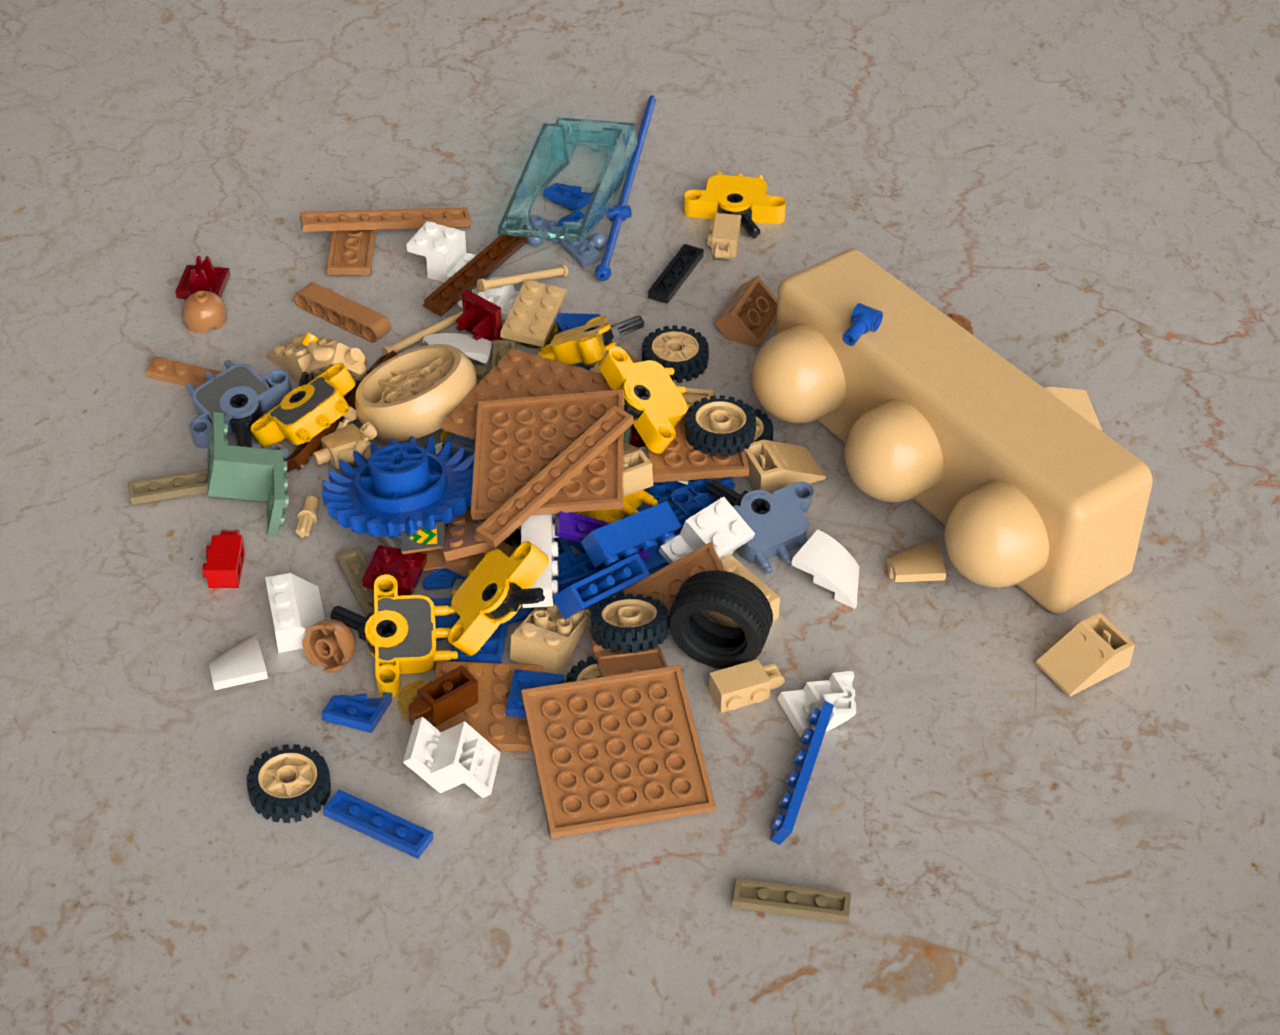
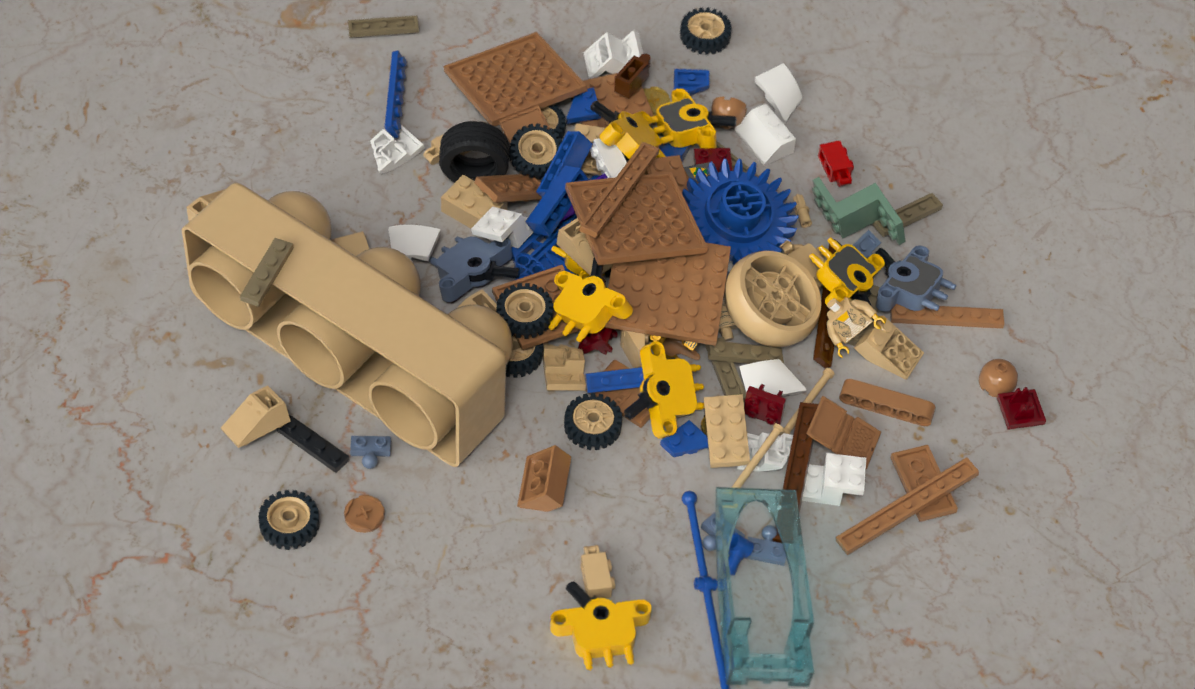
camera: 160 degrees right, 10 degrees up
(378, 823) = (641, 20): blue plate -> none
(408, 287) = (842, 432): none -> medium nougat piece
(568, 196) = (760, 598): blue wing -> none
(675, 273) = (625, 518): black plate -> none
(862, 320) = (424, 304): blue pin -> none
(1034, 332) = (286, 533): none -> wheel
(1047, 391) = (266, 272): none -> dark tan plate

